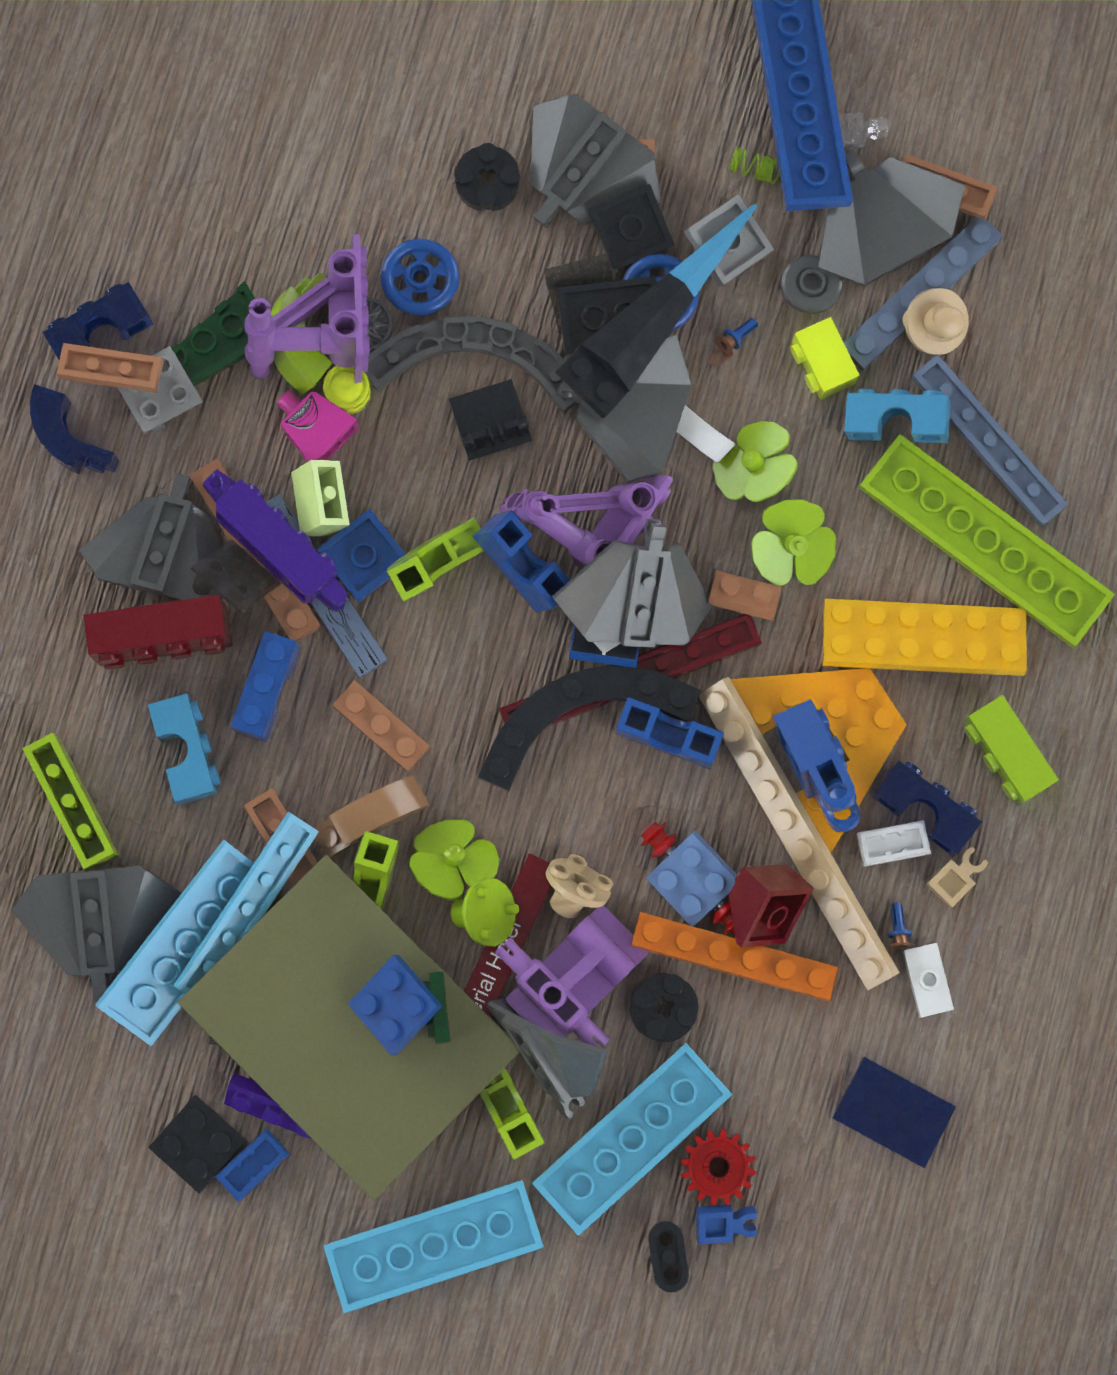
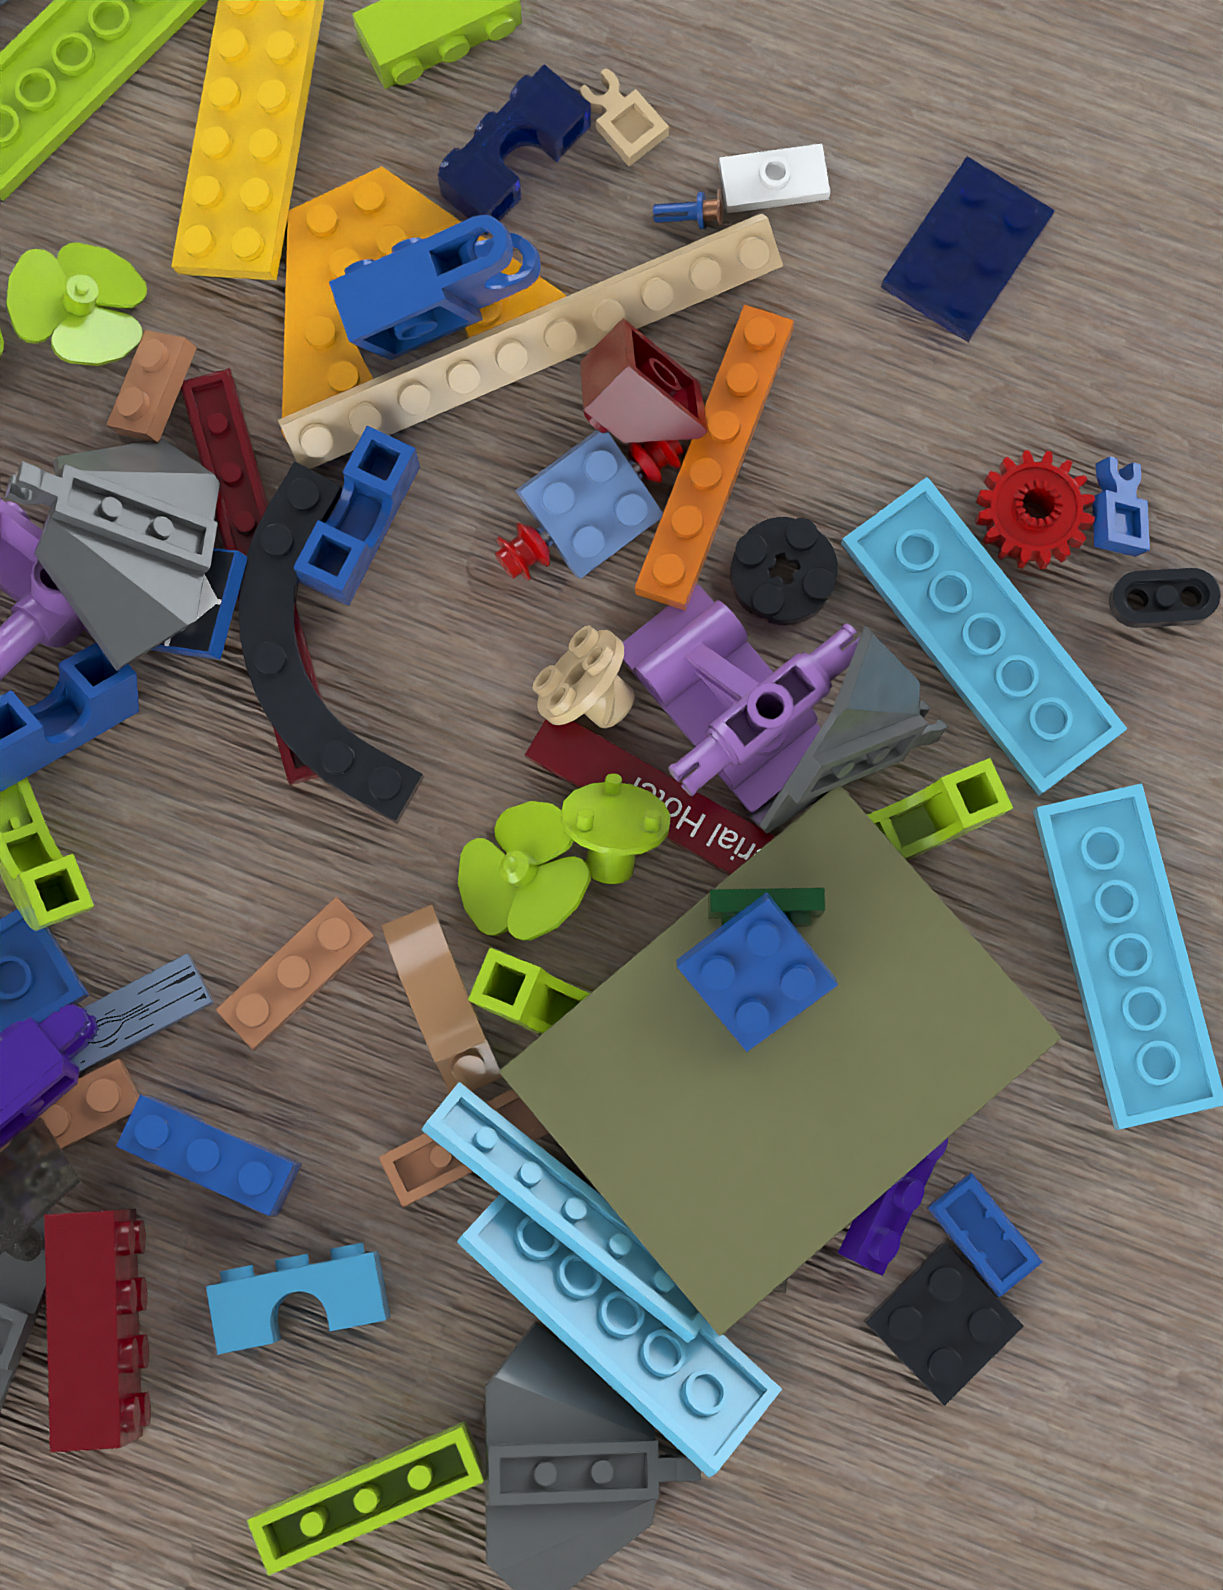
camera: 85 degrees left, 0 degrees up
(893, 843) = (563, 204): white plate -> none

